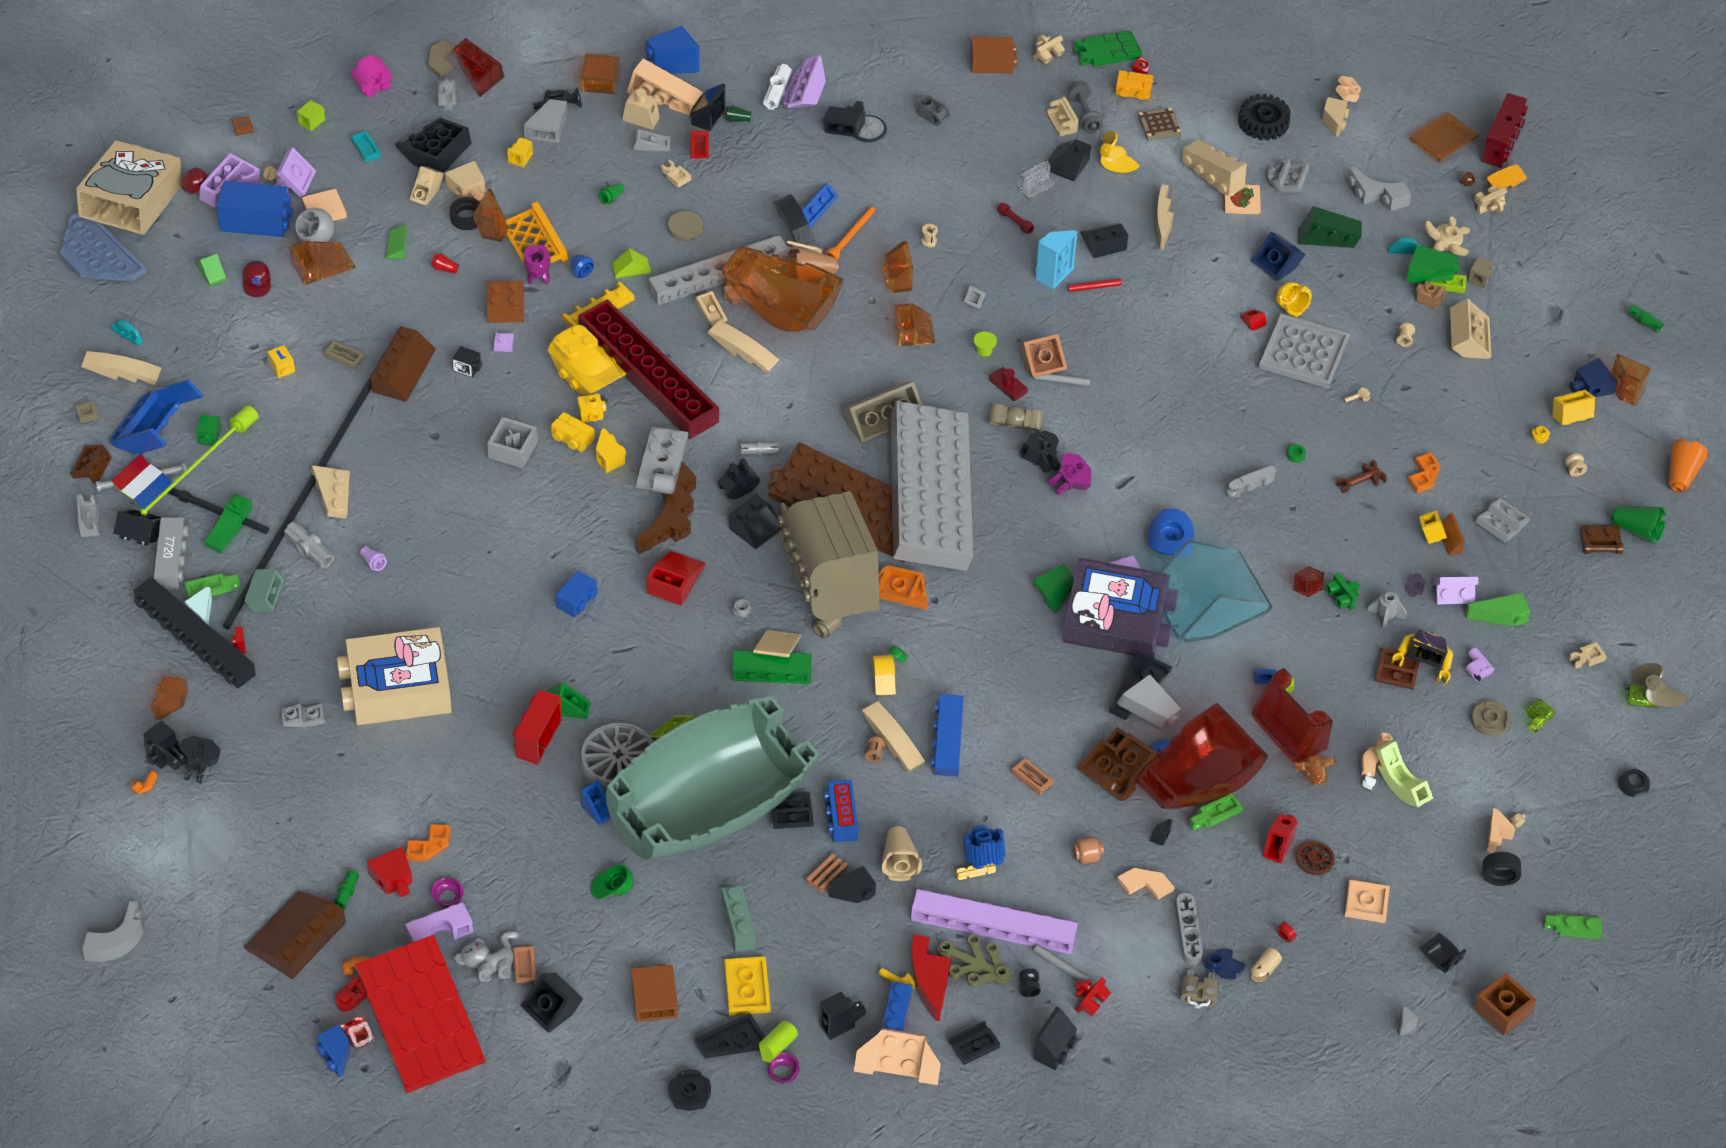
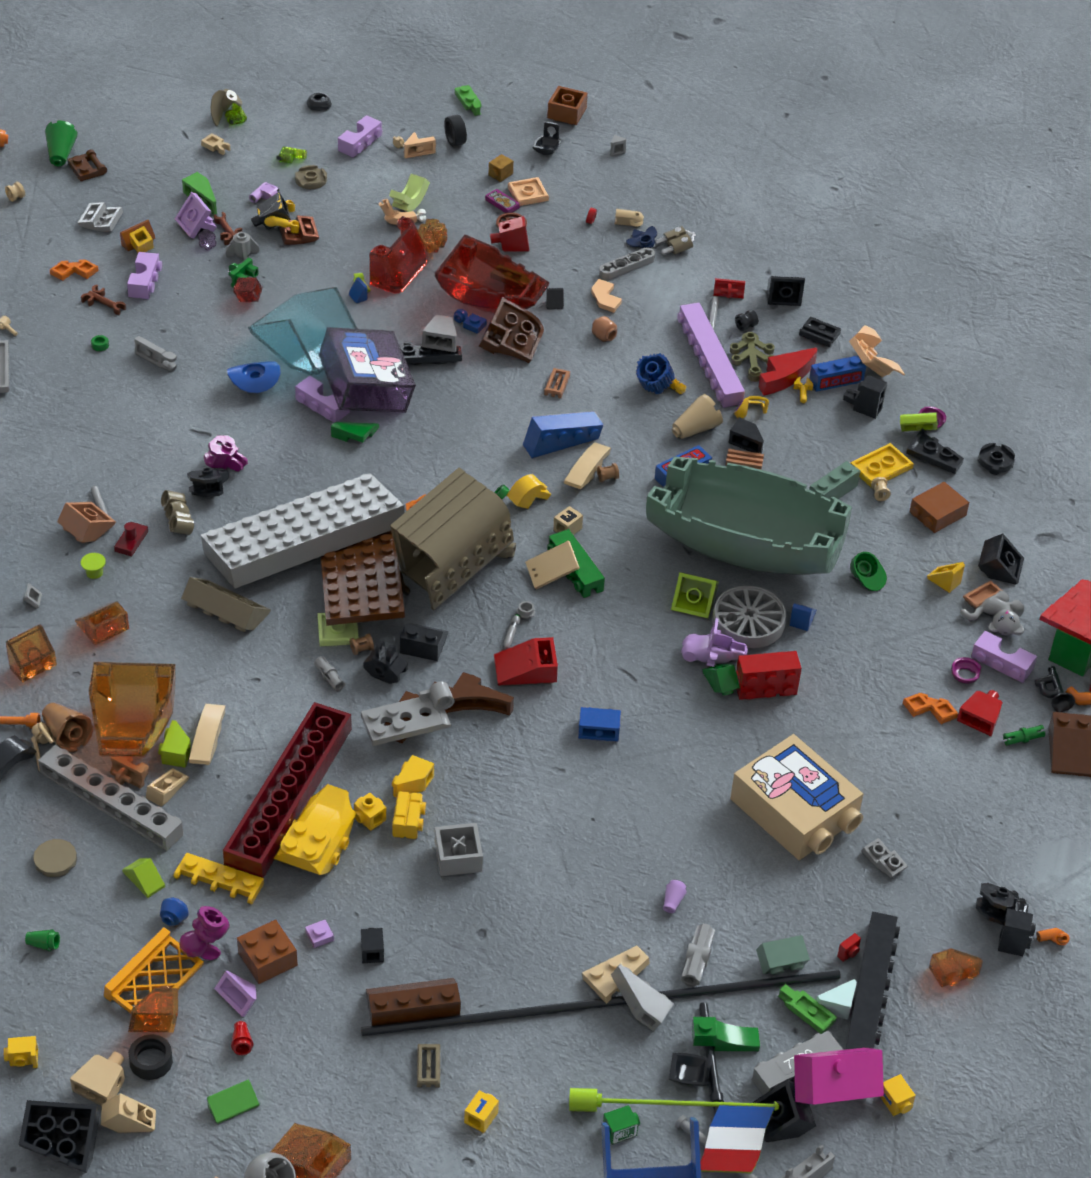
camera: 120 degrees left, 5 degrees down
(97, 597) = (898, 1095): none -> yellow brick
(128, 547) = (838, 1075): none -> dark pink brick
(217, 488) = (690, 1069): none -> black piece
(292, 485) = (643, 1000): none -> light grey slope
(360, 941) = (1061, 701): none -> black piece
(481, 279) = (237, 992): none -> lavender slope
(565, 944) = (947, 576): none -> yellow slope
(600, 709) = (712, 647): none -> lavender piece
(711, 959) = (880, 489): none -> tan bush
(724, 588) = (511, 631): none -> light grey piece
(747, 323) = (176, 746): none -> lime slope
(827, 686) = (568, 519): none -> tan brick
(897, 907) = (742, 409): none -> yellow piece
(1359, 867) = (502, 201): none -> tile
(1391, 524) = (142, 282): none -> lavender arch
(1417, 888) = (501, 168): none -> pearl gold brick
(1419, 614) = (228, 235): none -> copper bar
(1547, 798) = (367, 132): none -> lavender arch

